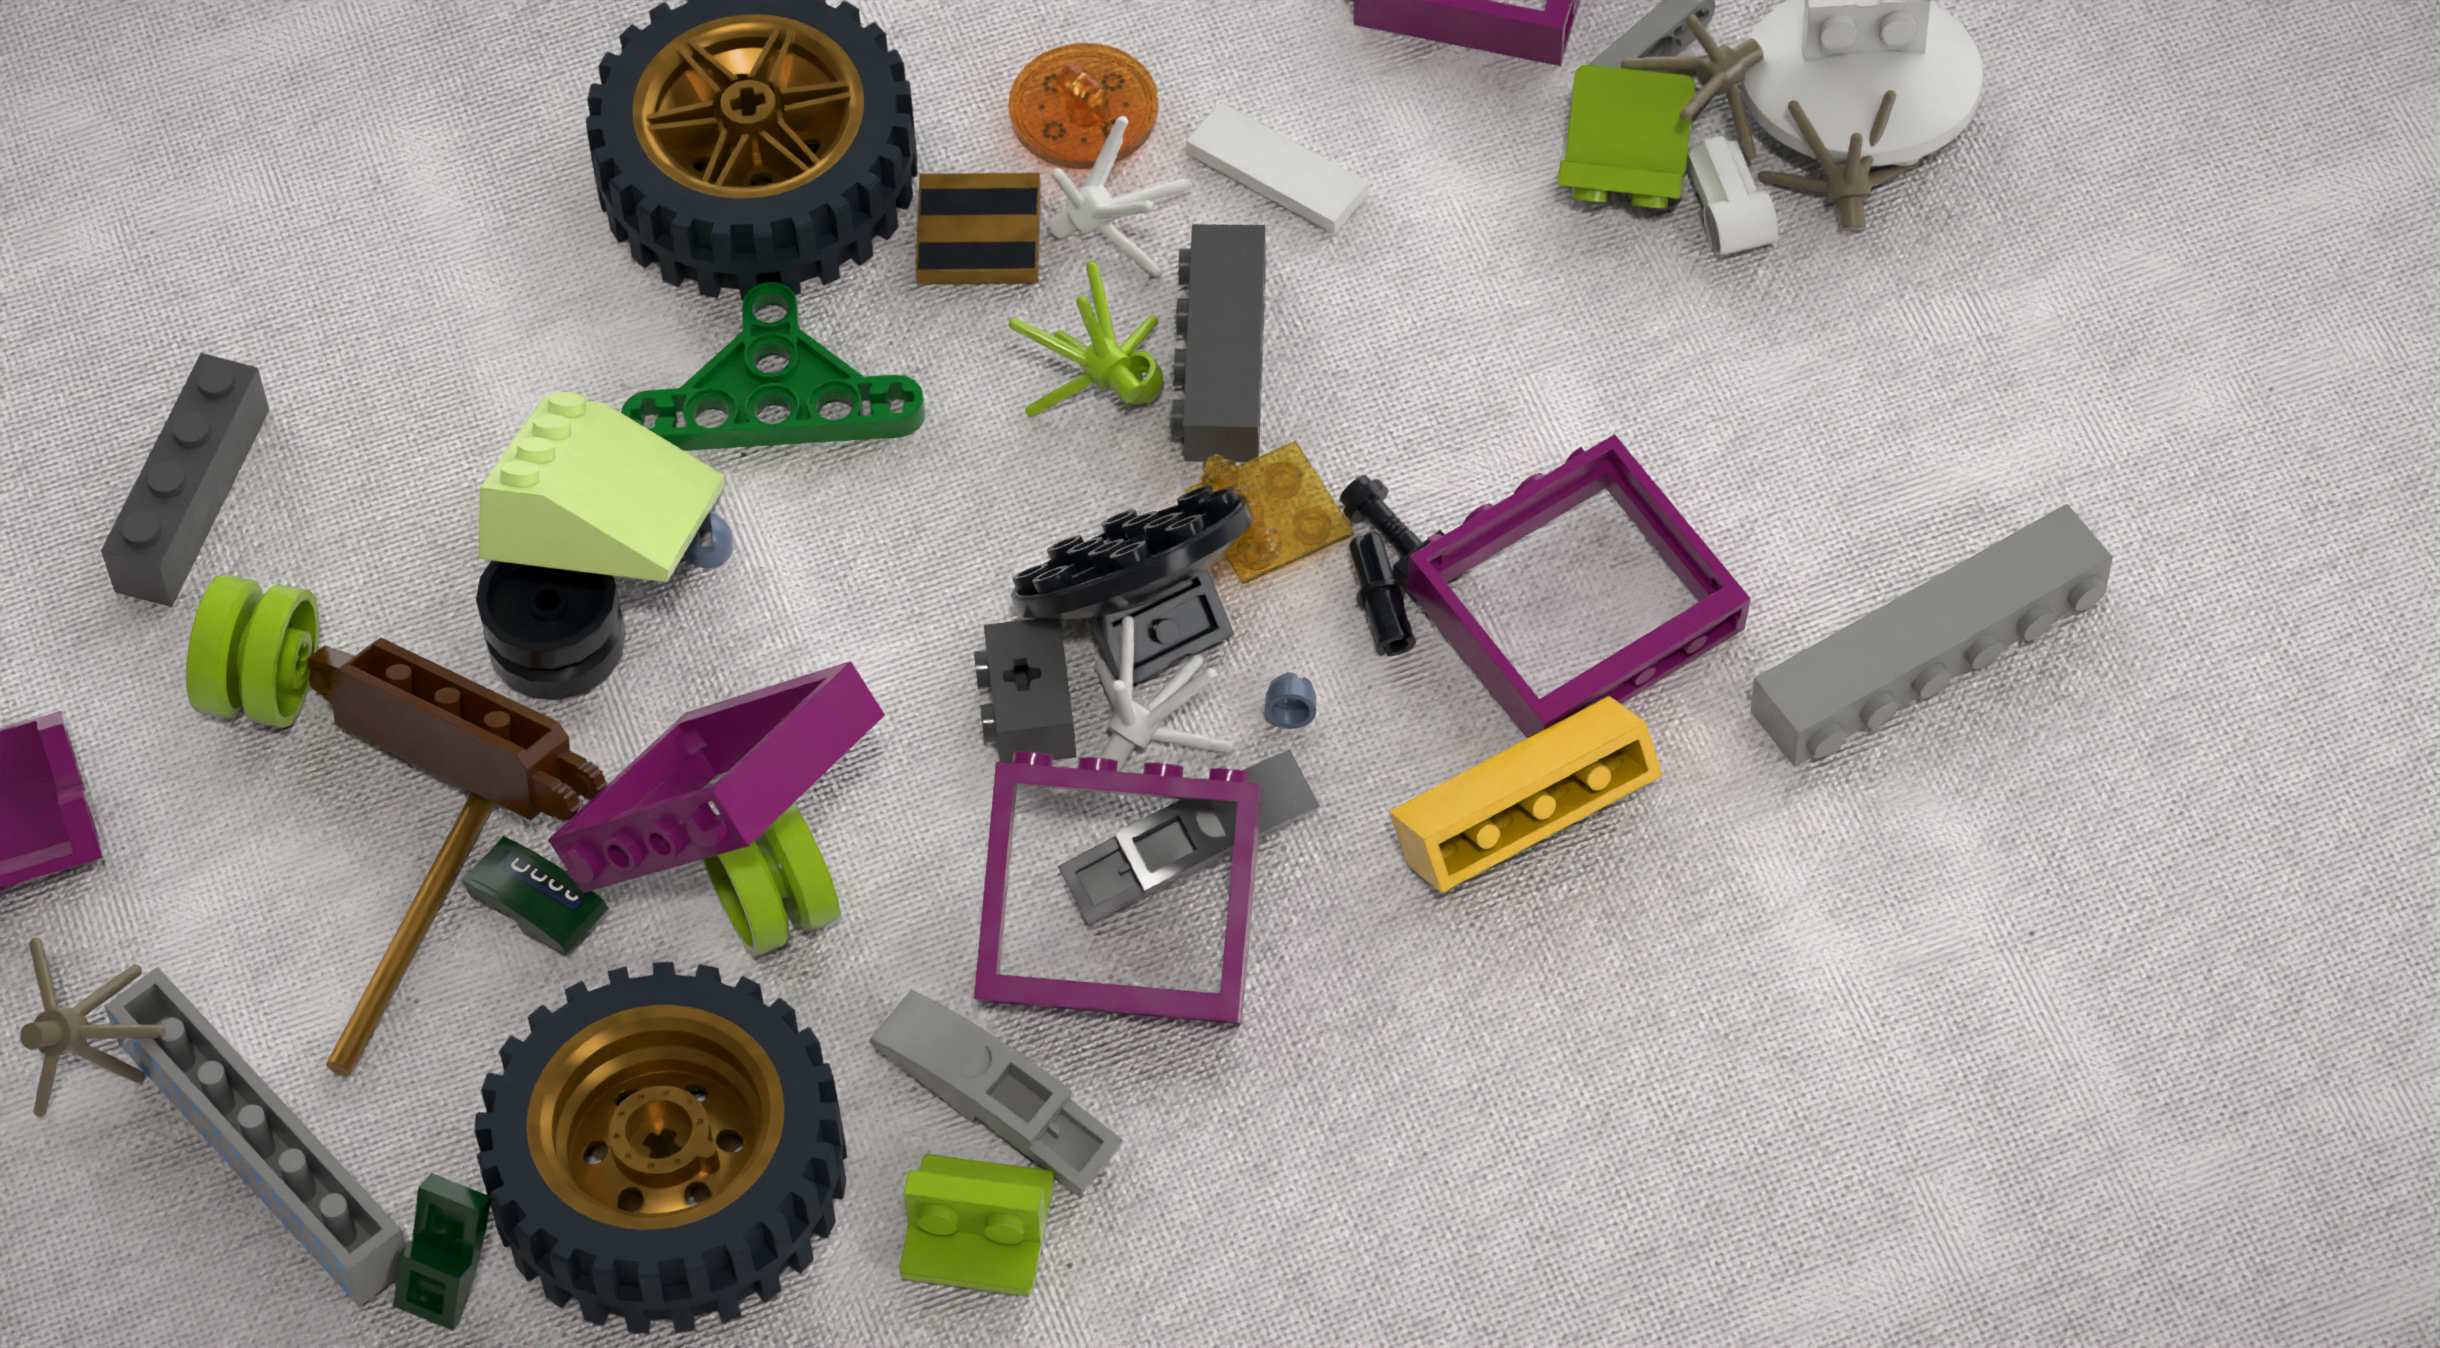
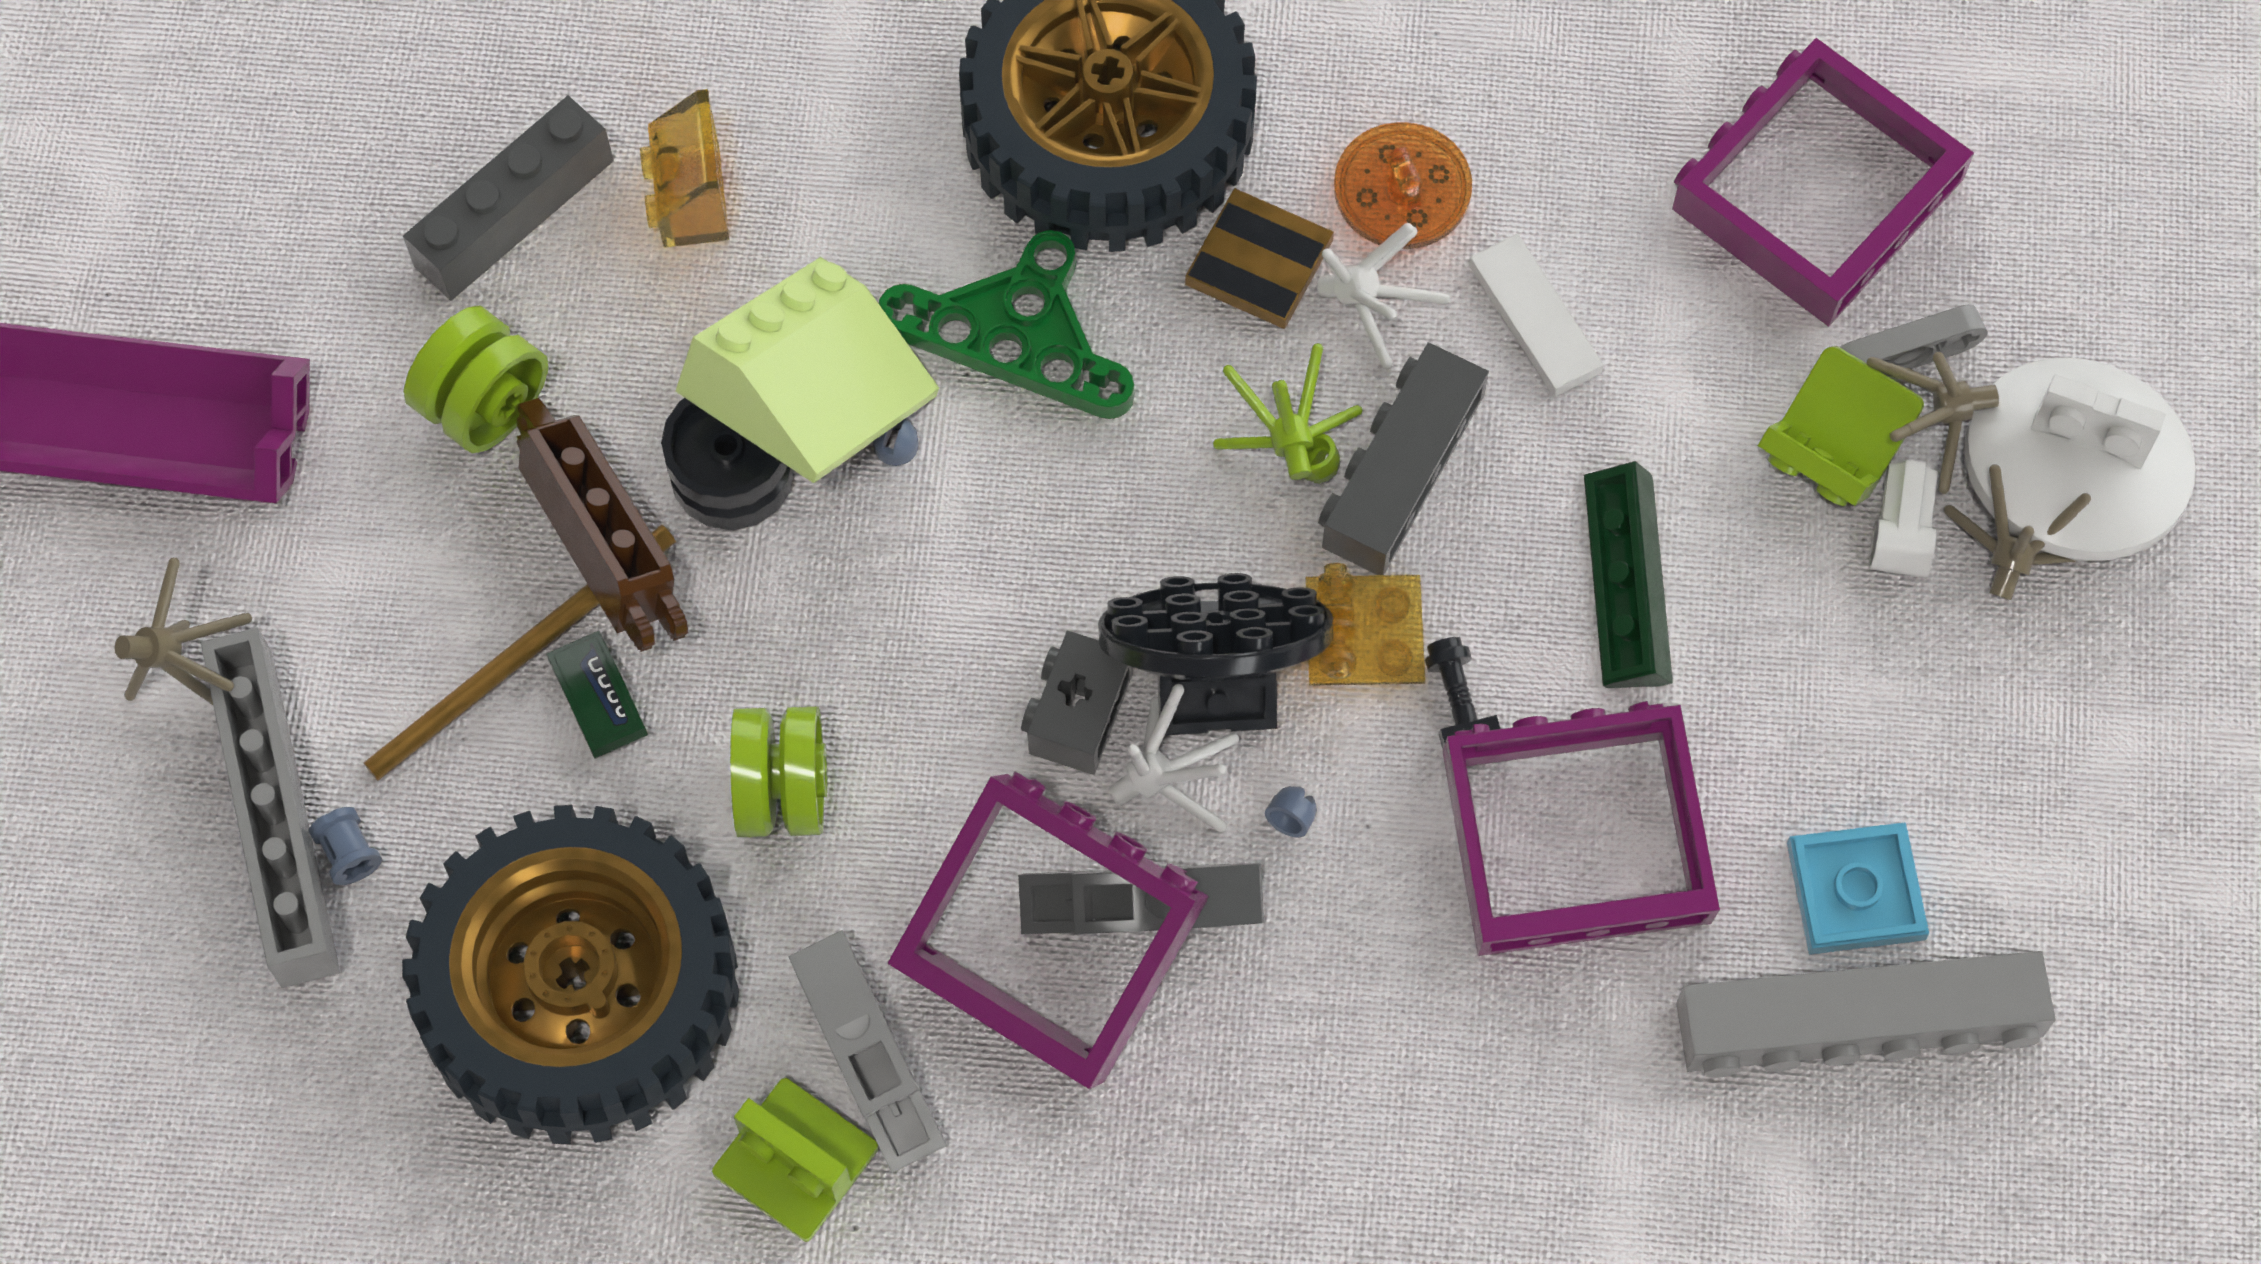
camera: 25 degrees right, 10 degrees up
(356, 1143) = (345, 846): none -> sand blue bush
(362, 378) = (685, 174): none -> clear yellow slope
(444, 1251) = (360, 980): dark green slope -> none
(765, 740) = (858, 675): magenta window -> none
(1381, 596) = (1416, 751): black axle -> none
(1494, 360) = (1627, 577): none -> dark green slope
(1525, 793) = (1437, 996): yellow brick -> none
(1864, 536) = (1857, 888): none -> medium azure tile

